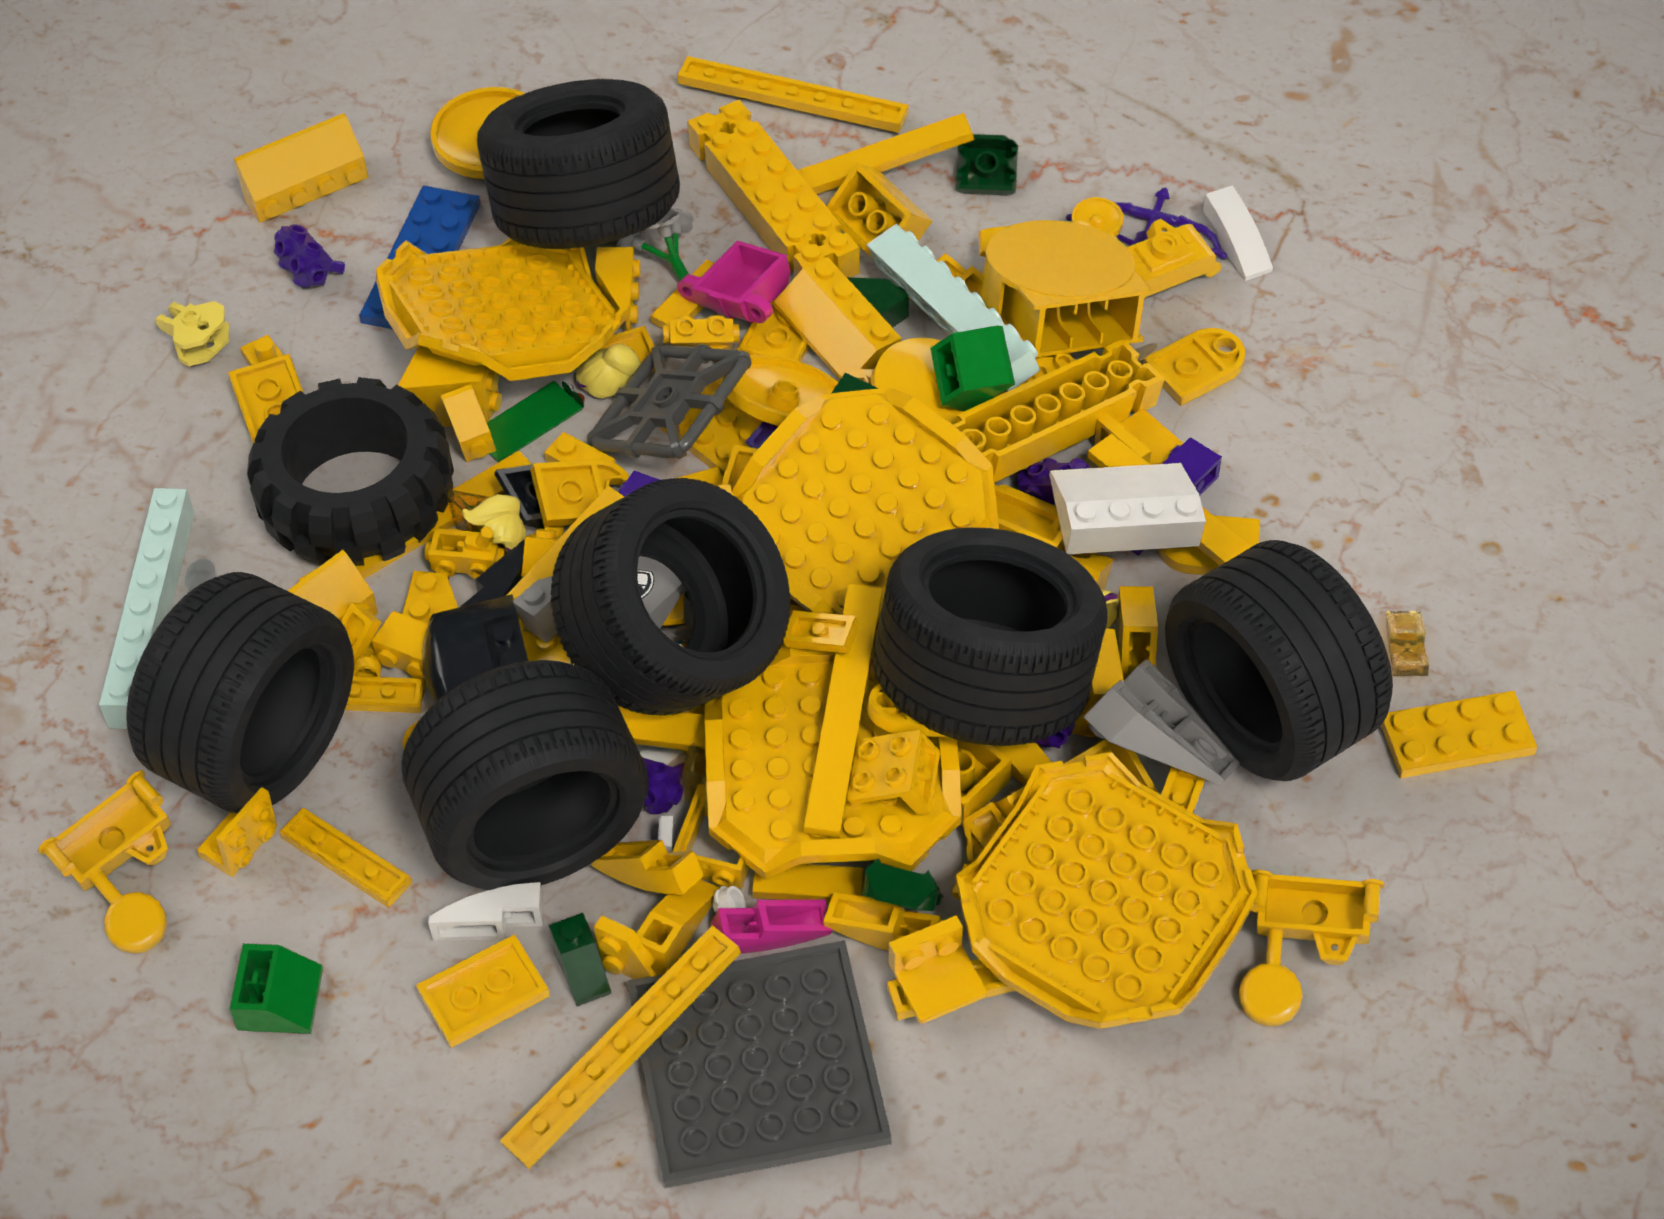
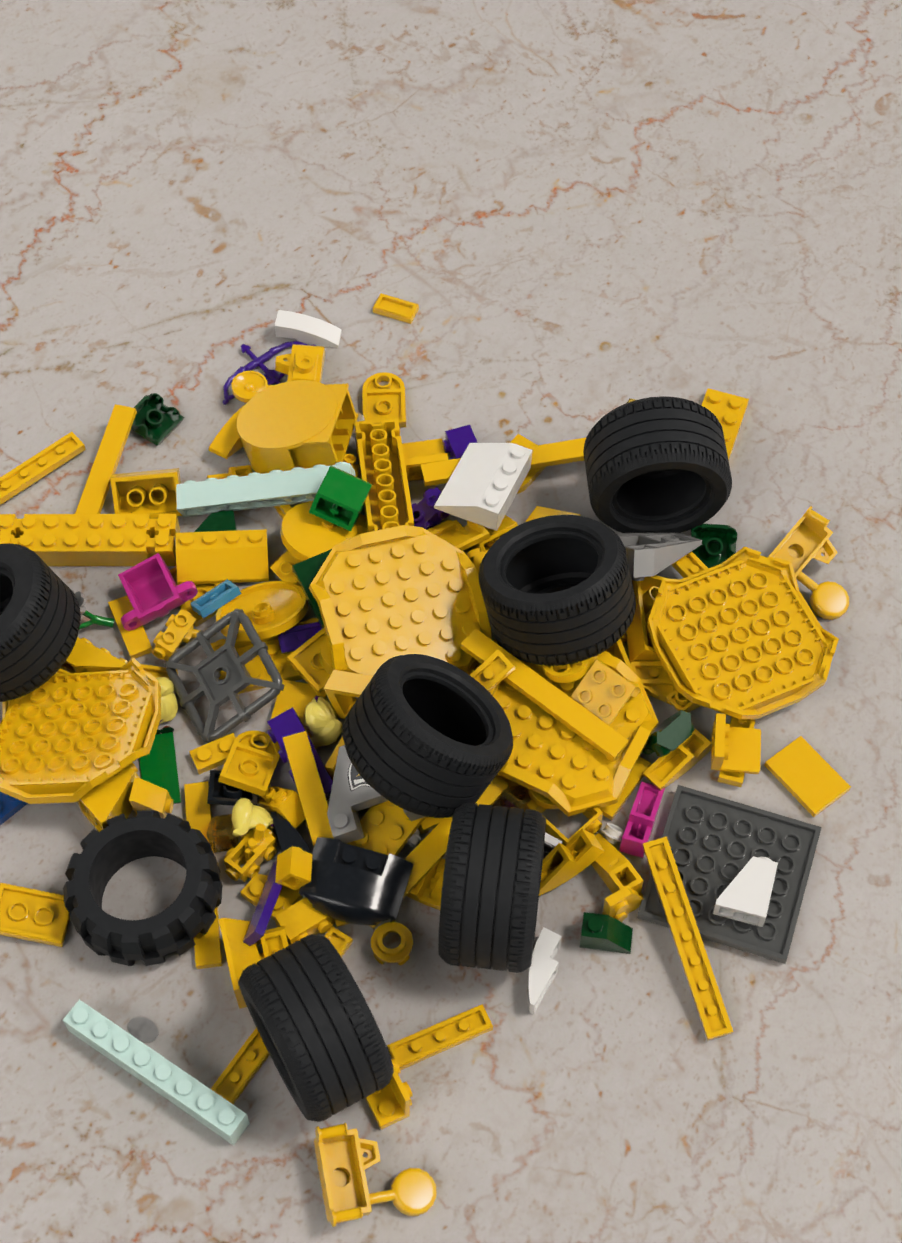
camera: 60 degrees left, 5 degrees up
(275, 990) = (525, 1123): green slope -> none
(406, 590) = (264, 908): none -> dark purple tile
(454, 588) = (294, 868): none -> yellow brick
(482, 990) = (594, 1000): yellow plate -> none
(729, 1086) = (749, 893): none -> white slope
(776, 345) = (215, 598): none -> dark azure tile
(966, 1091) = (807, 776): none -> yellow tile
(1256, 810) = (717, 543): none -> dark green slope
(1353, 303) = (395, 308): none -> yellow tile

